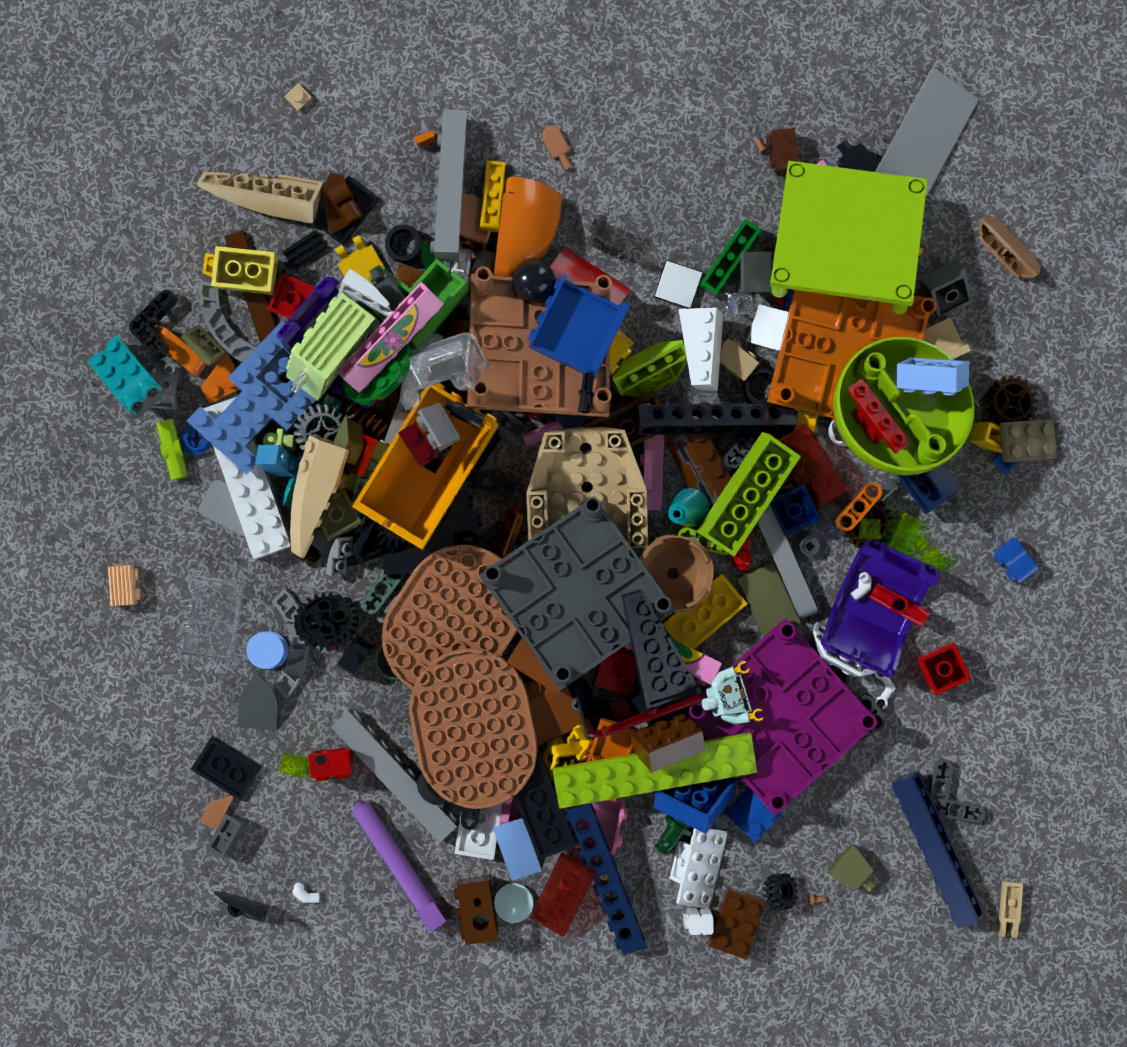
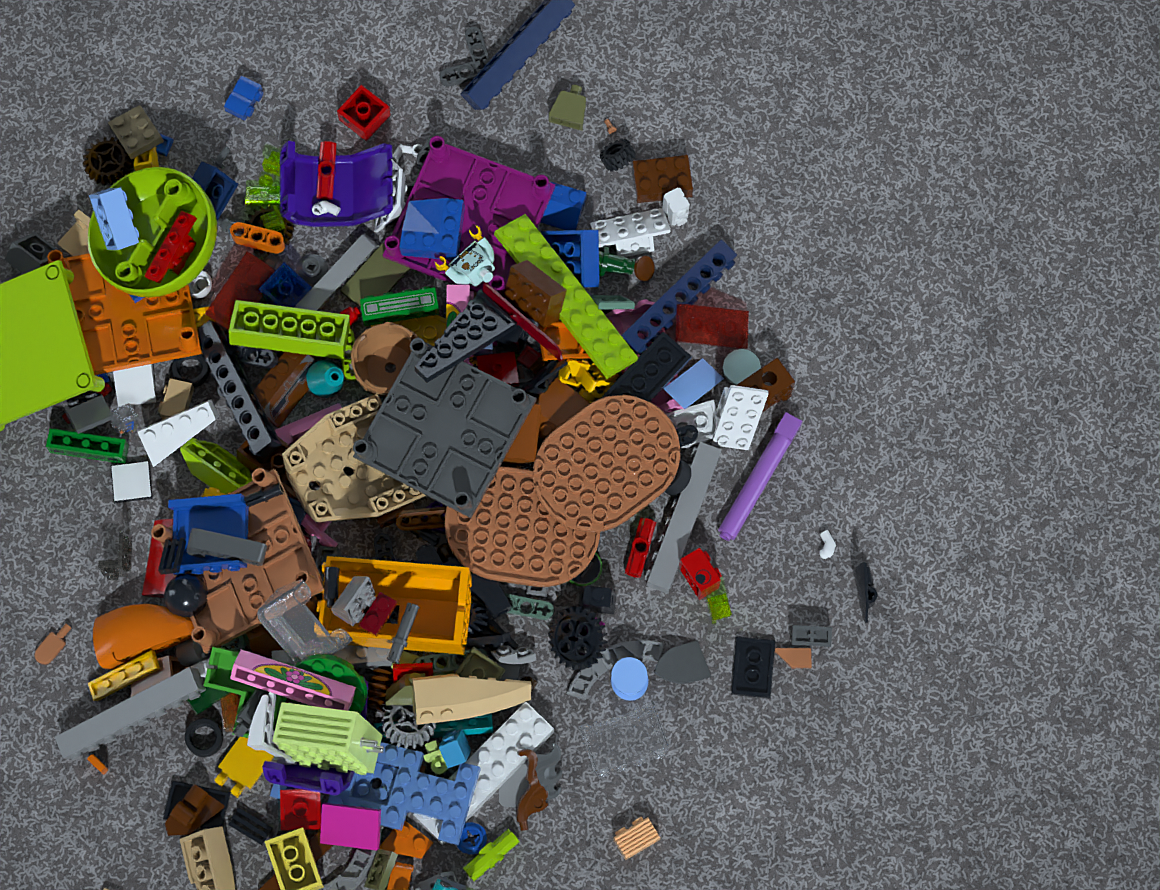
camera: 120 degrees left, 15 degrees down
(215, 525) = (541, 781): none -> piece
(253, 335) = (350, 826): none -> dark pink tile
(380, 451) = (402, 634): none -> dark grey pin
(395, 730) = (643, 536): none -> red piece
(460, 873) = (738, 416): none -> white bracket
(552, 335) = (226, 547): none -> dark grey beam
(577, 282) = (168, 556): none -> black tile
(632, 811) = (613, 302): none -> sand green tile
(654, 860) = (644, 268): none -> reddish brown piece
(725, 609) = (399, 306): none -> green brick
(786, 677) = (433, 228): none -> blue slope

